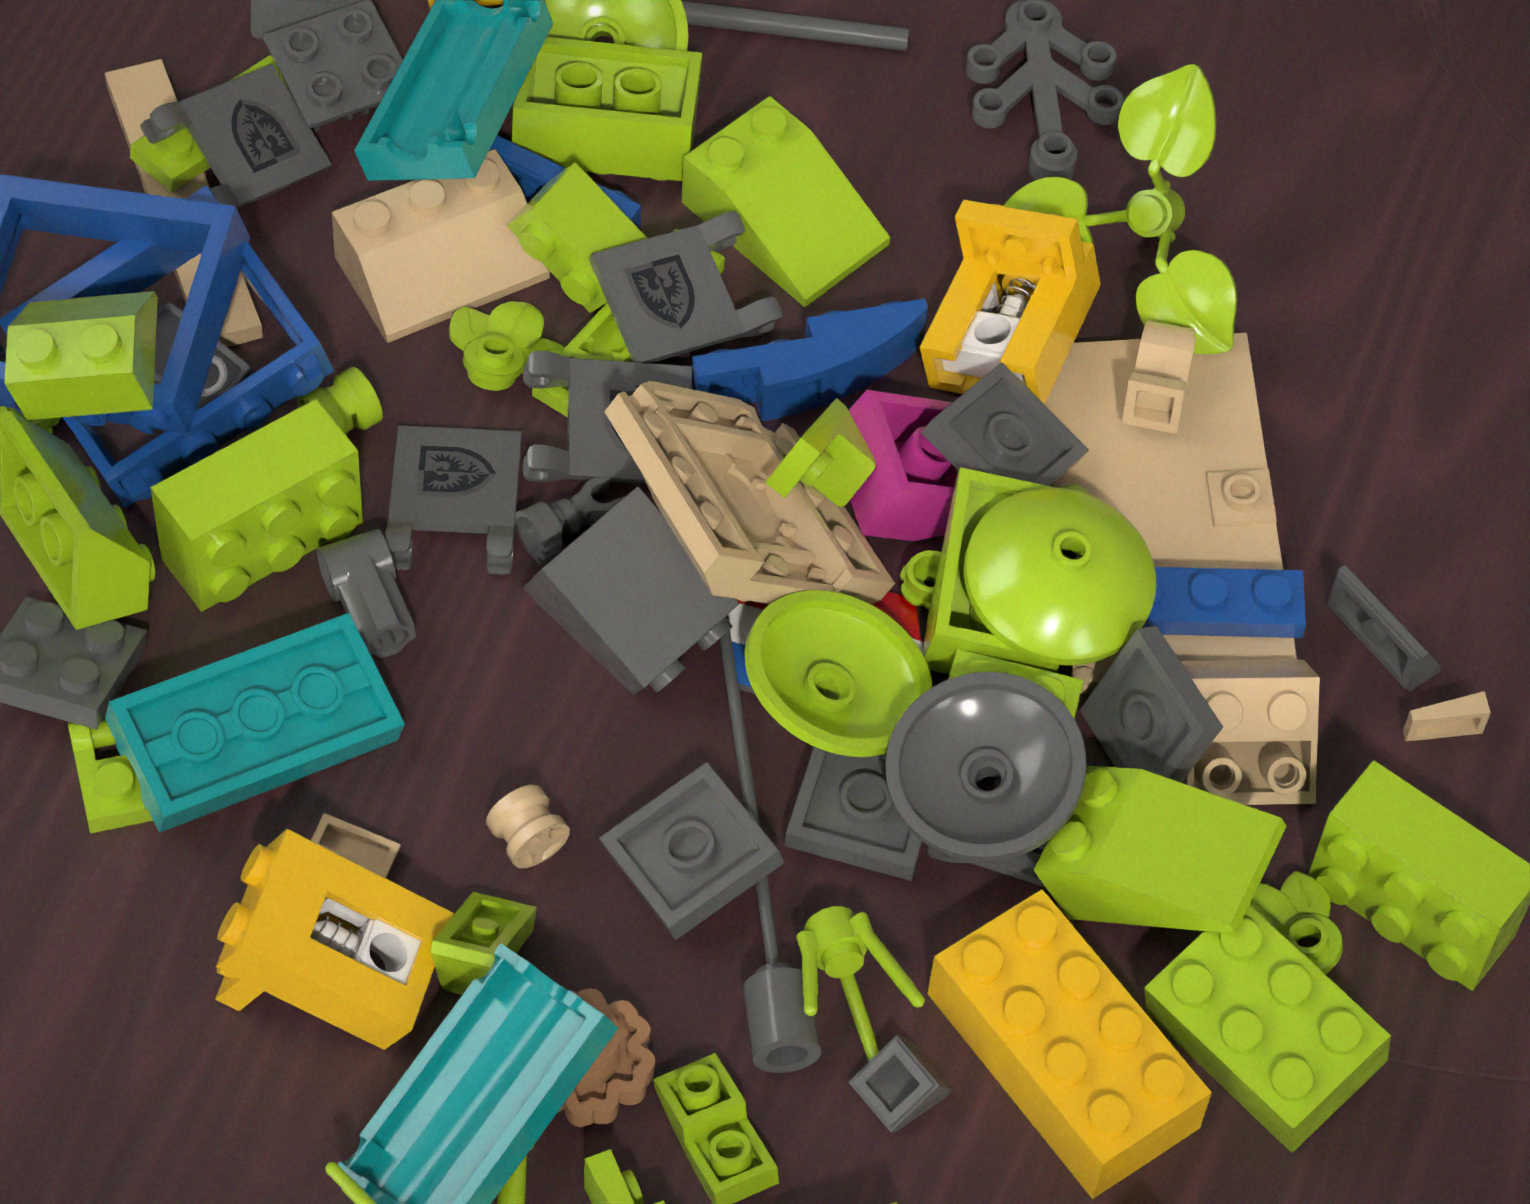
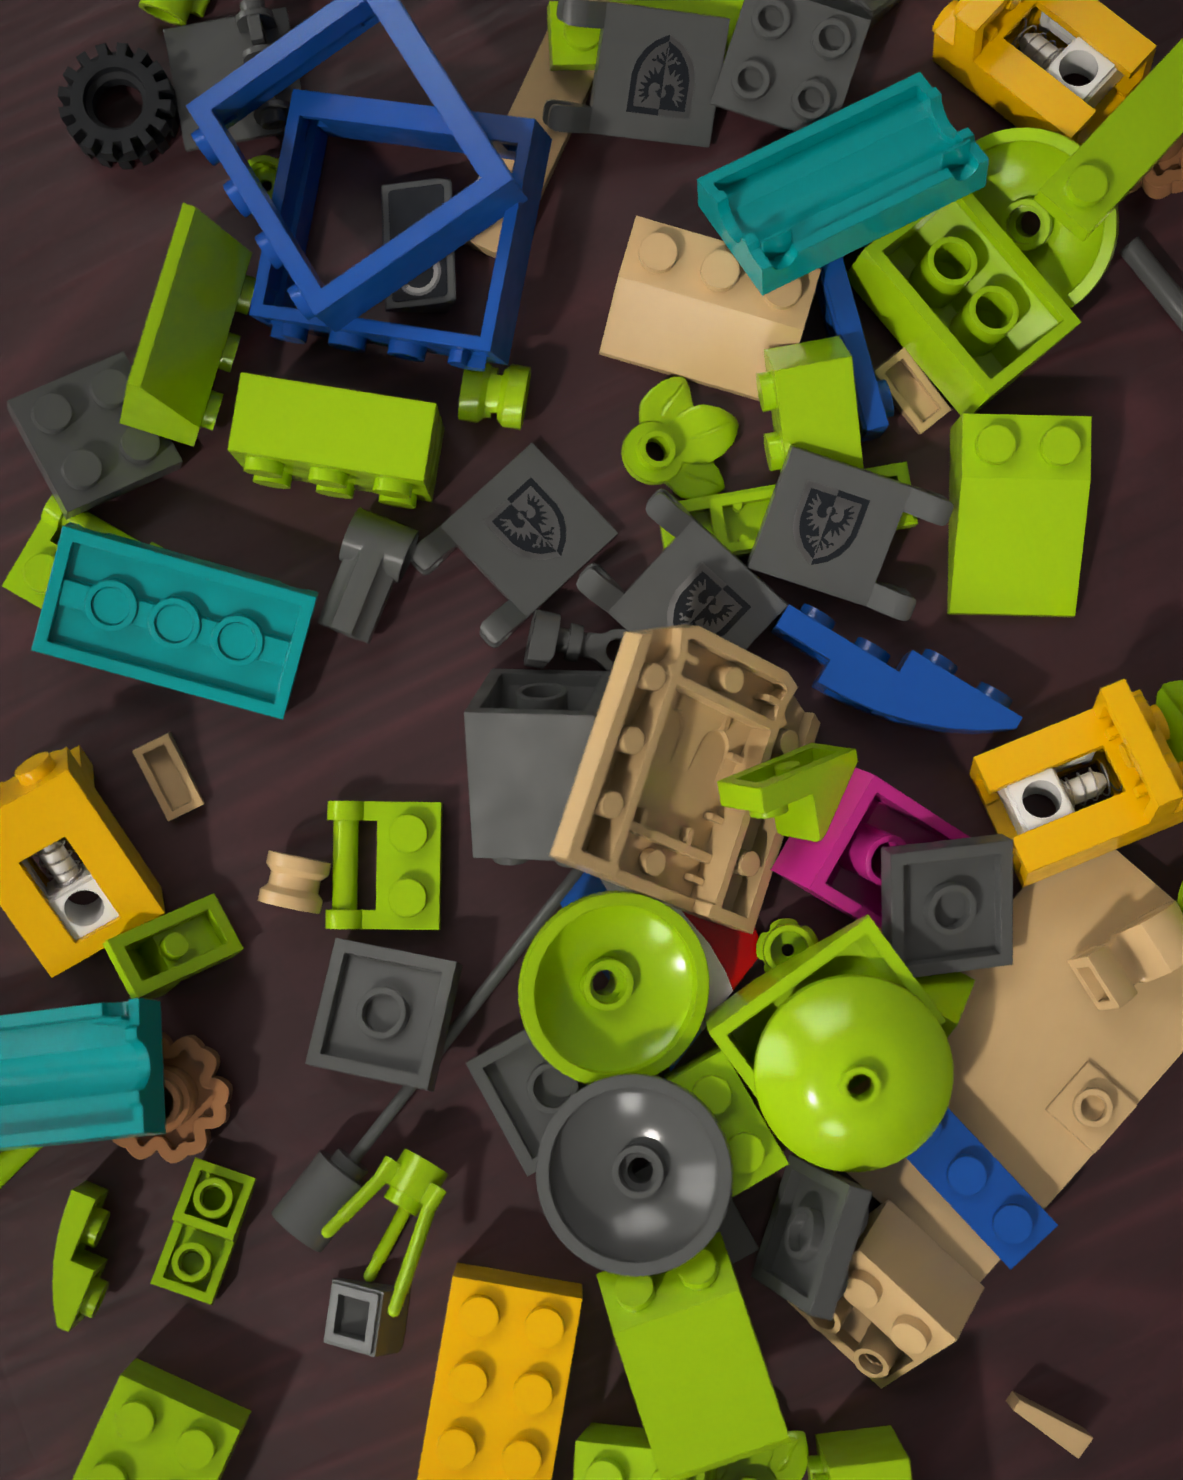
camera: 45 degrees right, 30 degrees up
(83, 356) = (283, 206): lime slope -> none
(595, 756) = (405, 869): none -> lime plate
(650, 195) = (912, 391): none -> tan piece
(1381, 631) = (1084, 1309): dark grey slope -> none

